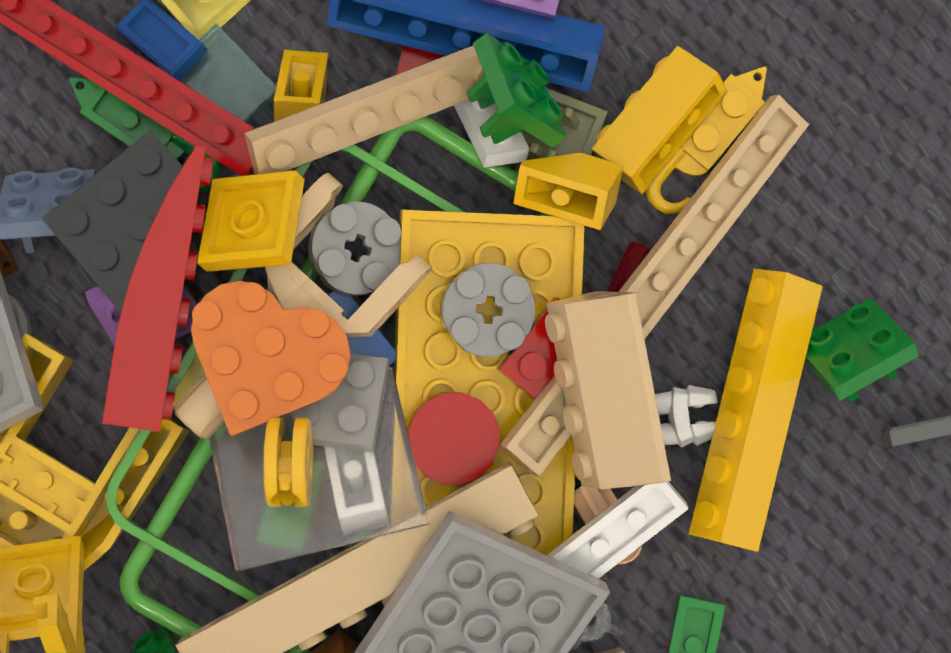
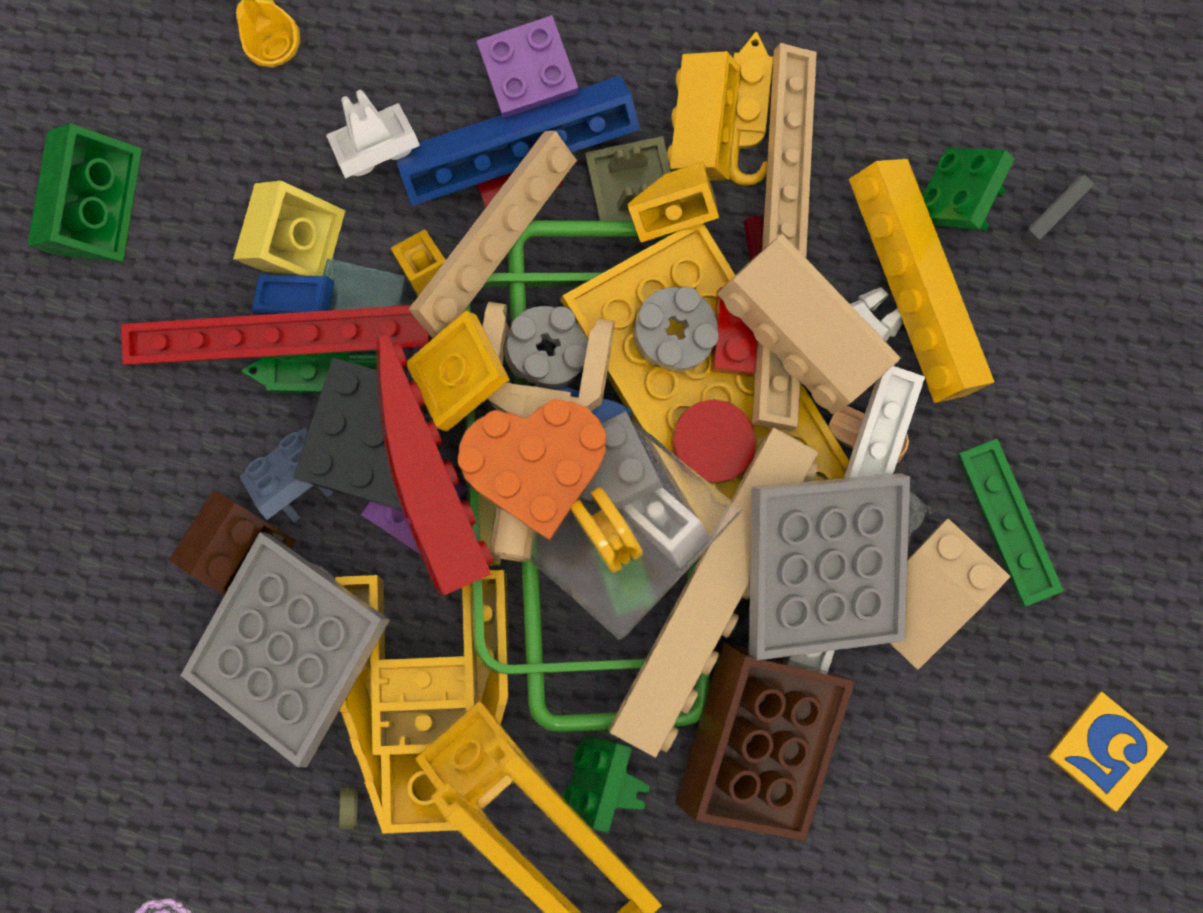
camera: 25 degrees left, 5 degrees down
(490, 154) = (587, 200): white plate -> none
(519, 94) = (591, 151): green plate -> none

